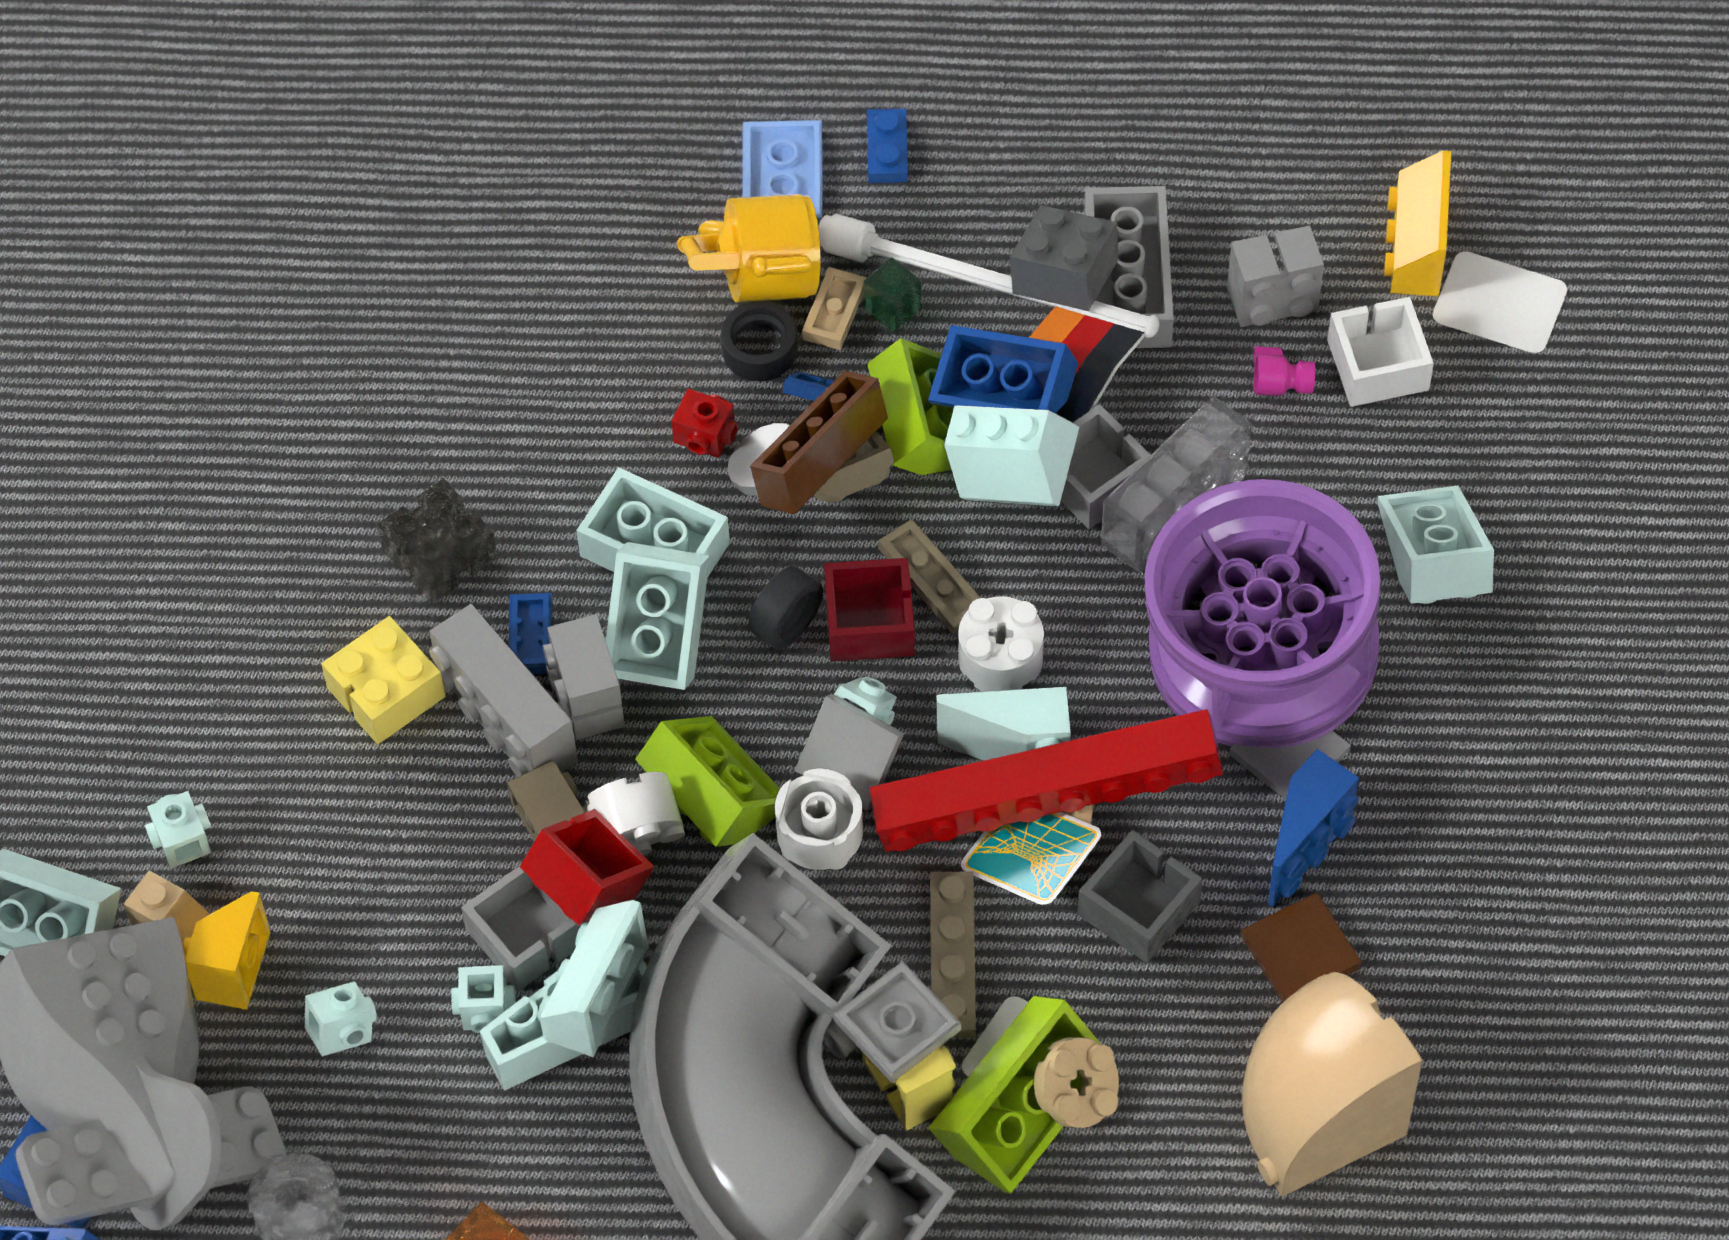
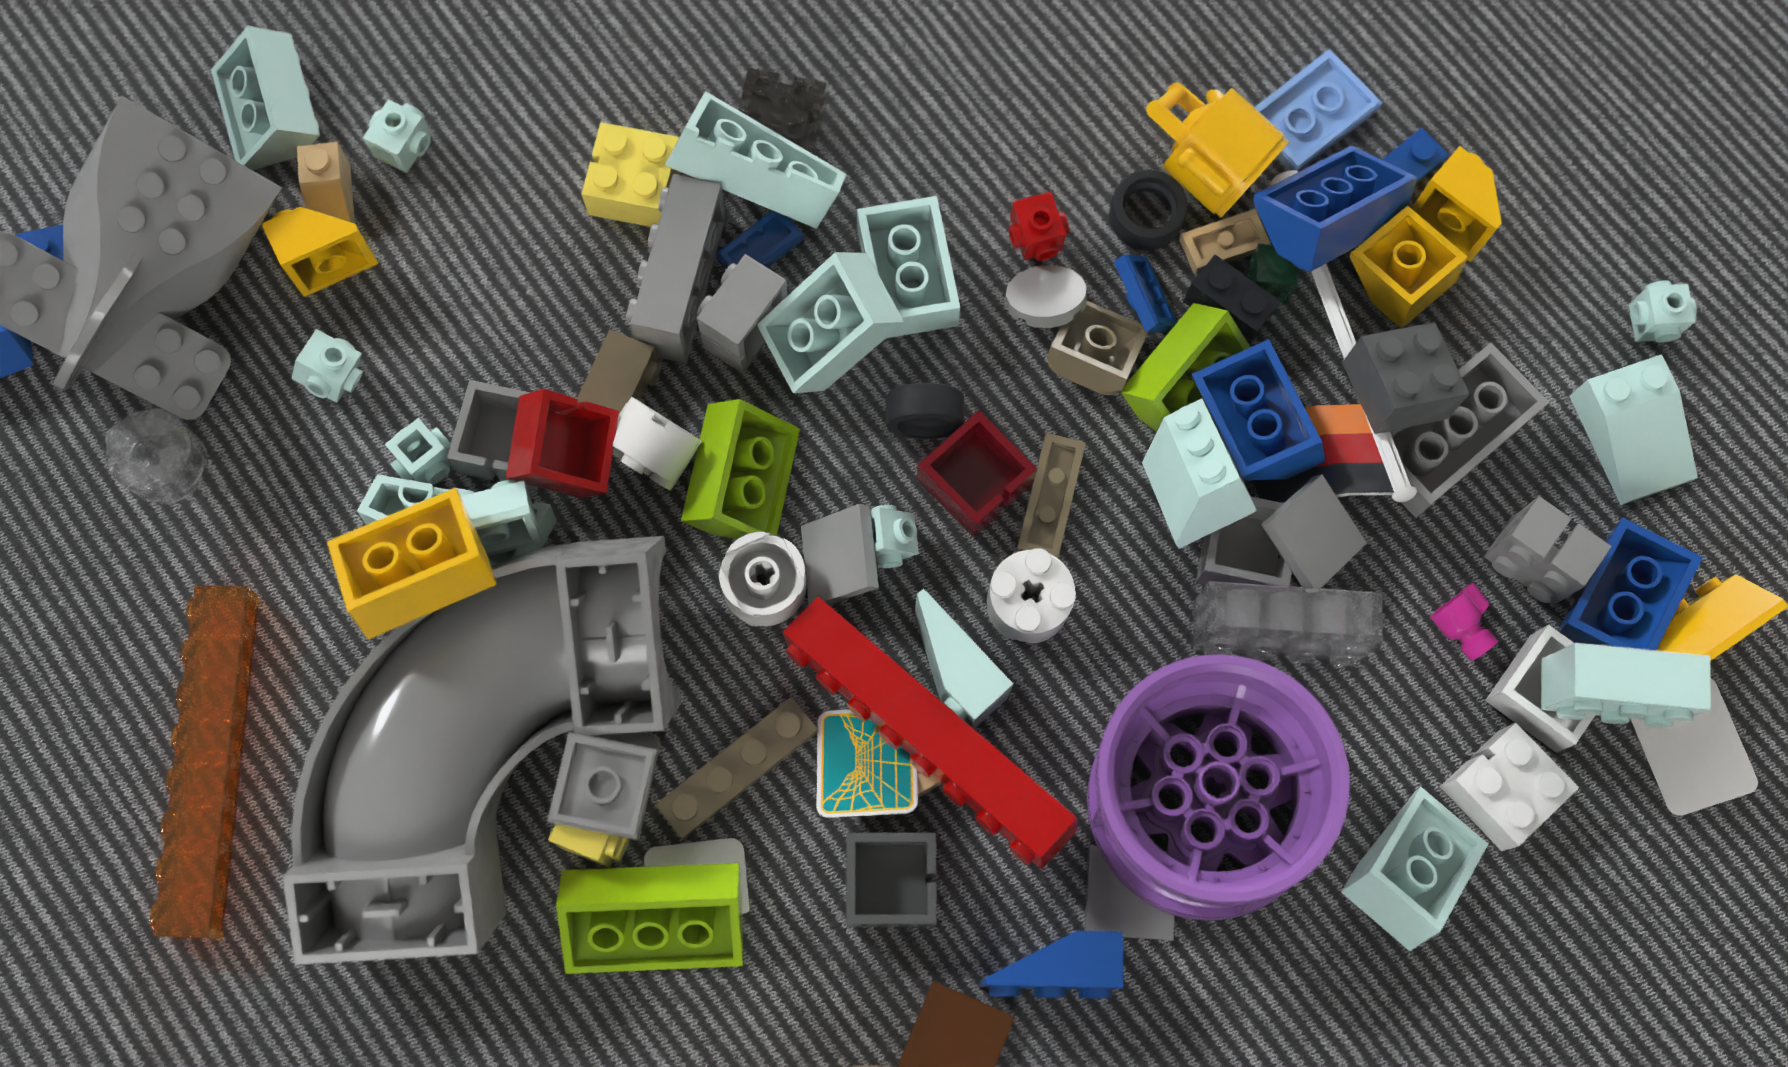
camera: 45 degrees right, 15 degrees up
(474, 570) = (755, 162): none -> light aqua wedge
(611, 1004) = (410, 564): none -> yellow slope
(819, 442) = (1077, 323): reddish brown brick -> none
(874, 331) = (1228, 289): none -> black brick
(882, 208) = (1332, 206): none -> blue slope
(957, 128) = (1462, 202): none -> yellow slope
(971, 200) = (1407, 266): none -> yellow slope
(1099, 1086) = (687, 979): tan plate -> none
(1126, 409) = (1314, 533): none -> light grey tile
(1160, 66) = (1662, 312): none -> light aqua brick
(1234, 151) = (1637, 428): none -> light aqua slope
(1357, 247) = (1631, 591): none -> blue slope
(1416, 291) = (1625, 684): none -> light aqua brick
(1430, 438) = (1510, 790): none -> white piece

